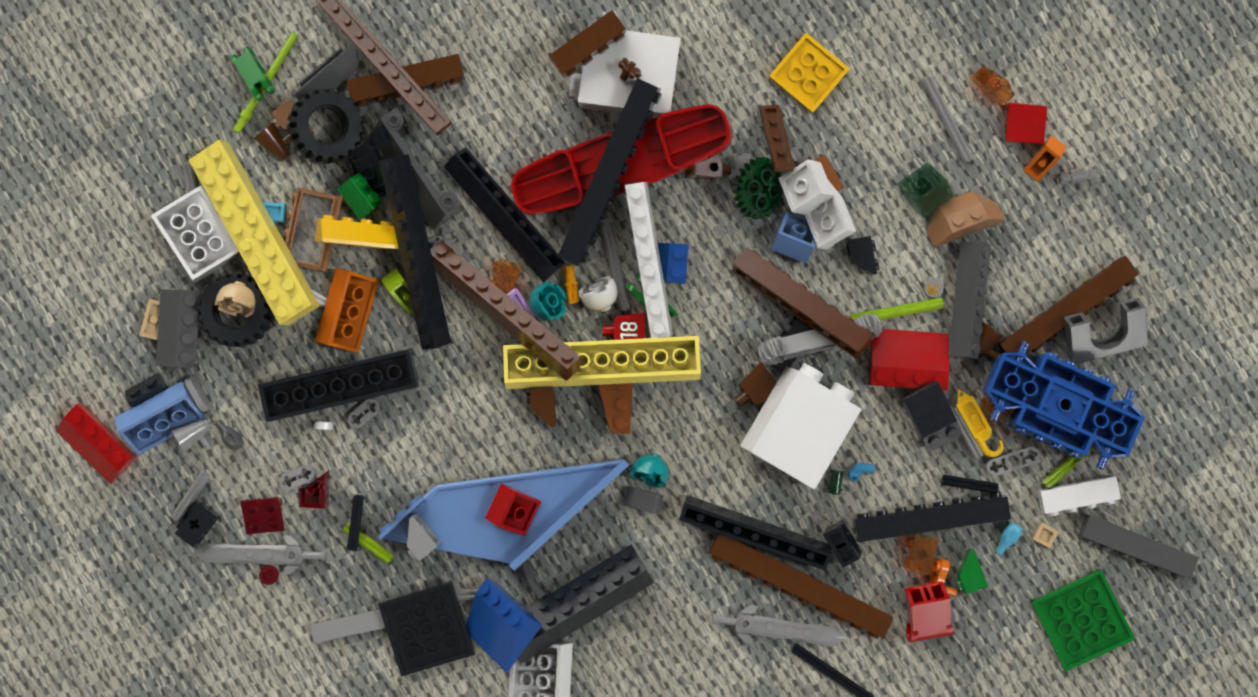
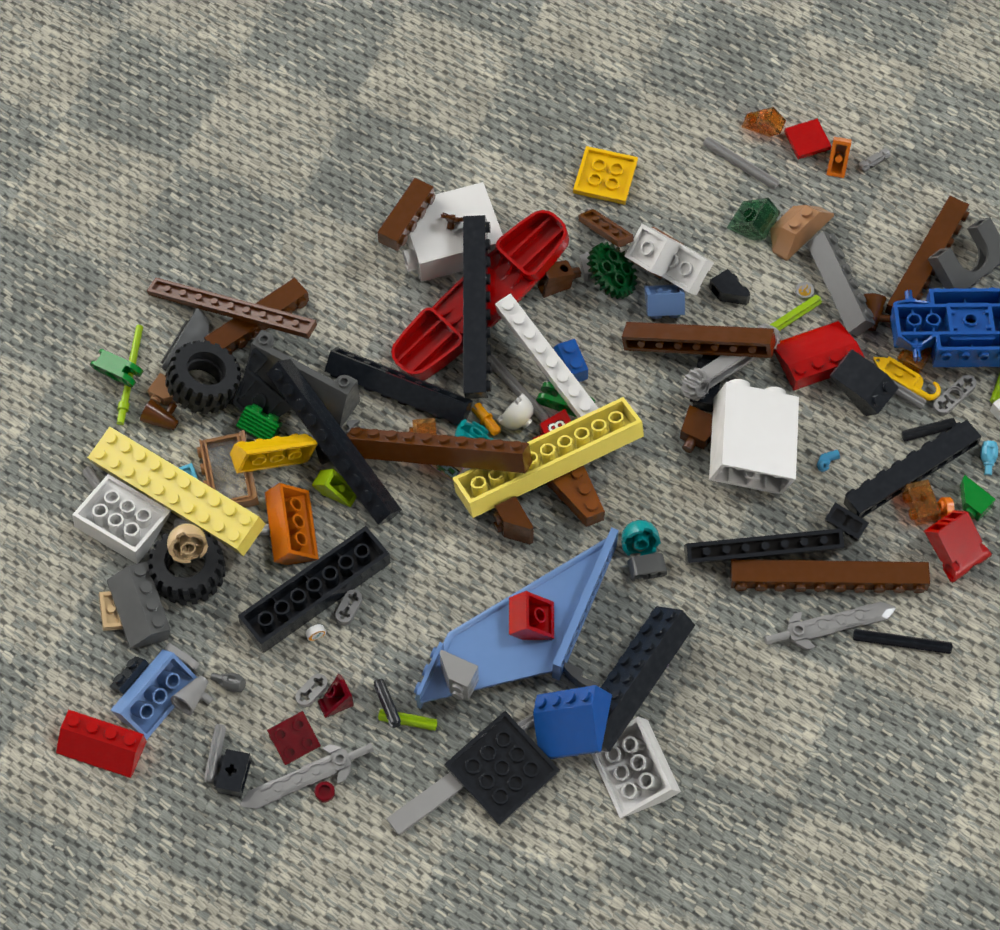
camera: 25 degrees left, 25 degrees down
(835, 484) = (813, 482): dark green pin -> none

